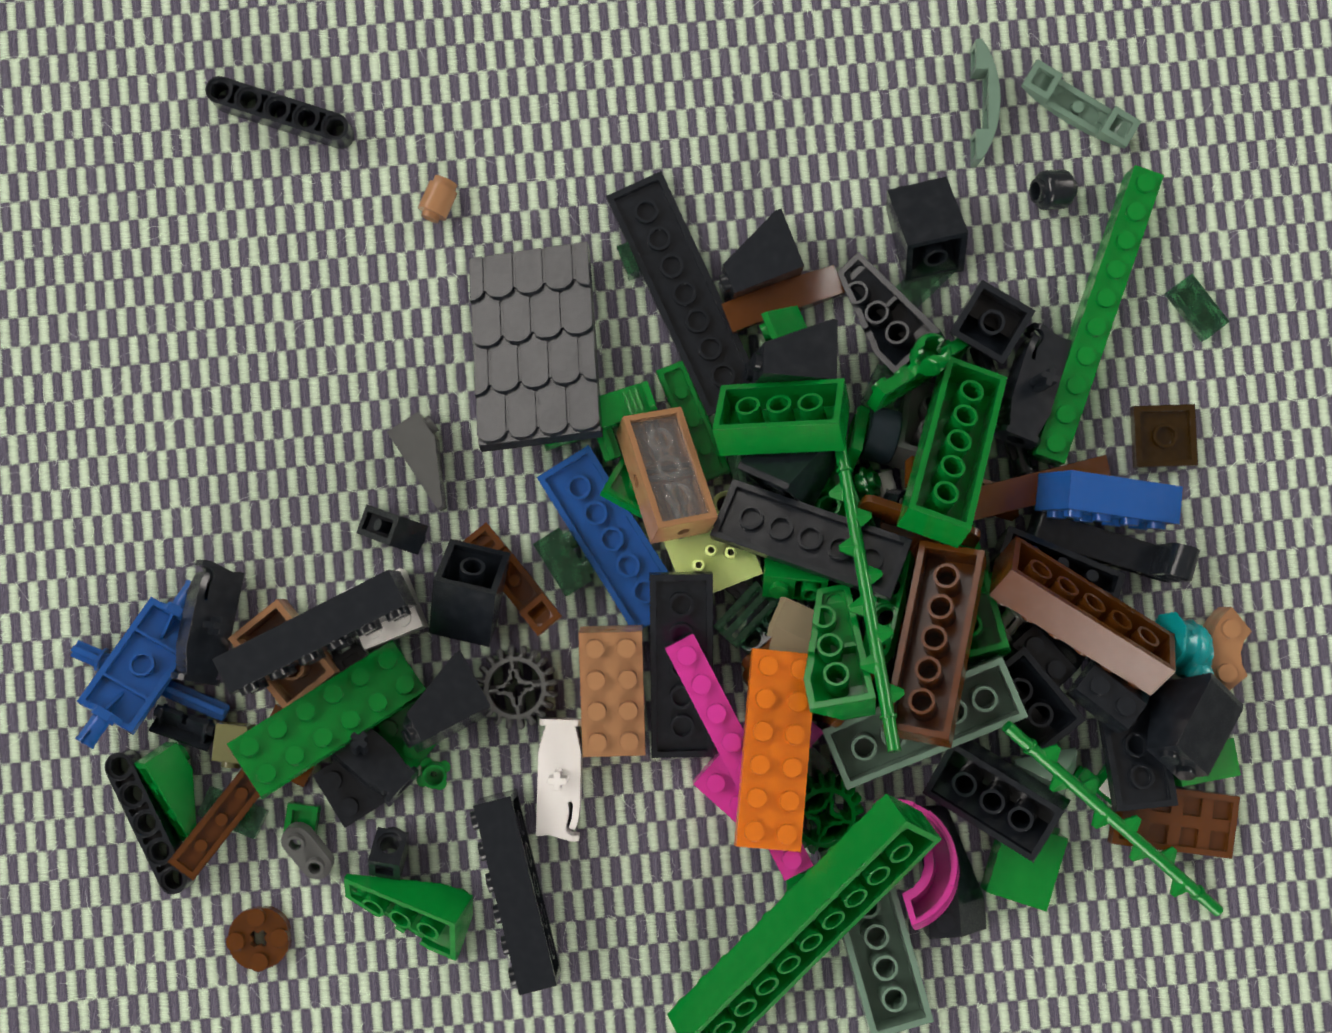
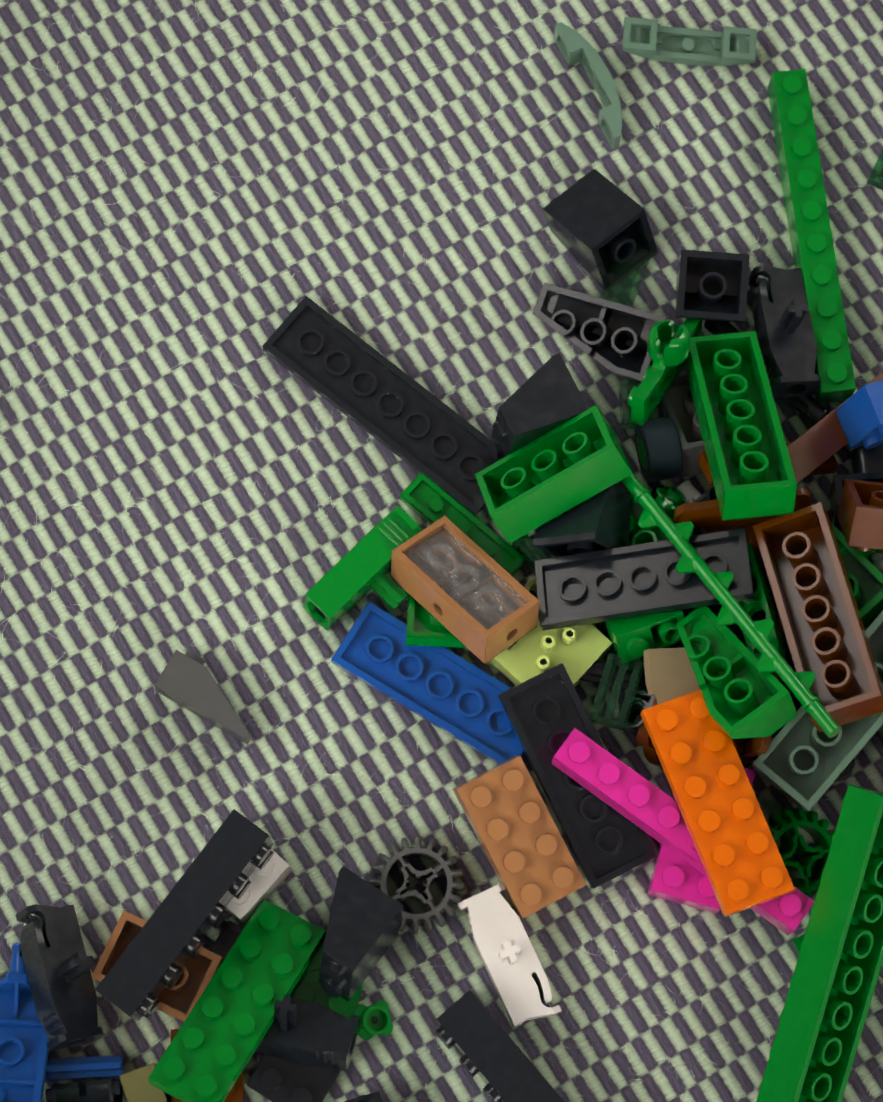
camera: 30 degrees left, 10 degrees down
(392, 529) = (206, 785): black slope -> none
(438, 199) = (90, 429): medium nougat brick -> none
(468, 592) = (320, 810): black slope -> none
(520, 585) = (357, 776): reddish brown slope -> none
(535, 347) = (265, 528): piece -> none
(563, 561) = (402, 731): clear green brick -> none
(628, 261) = (316, 400): clear green tile -> none
(762, 259) = (455, 336): black slope -> none
(781, 322) = (503, 384): green slope -> none
(801, 290) = (492, 363): reddish brown slope -> none
(857, 434) = (635, 456): green tile -> none
(1053, 189) = (705, 133): black head -> none

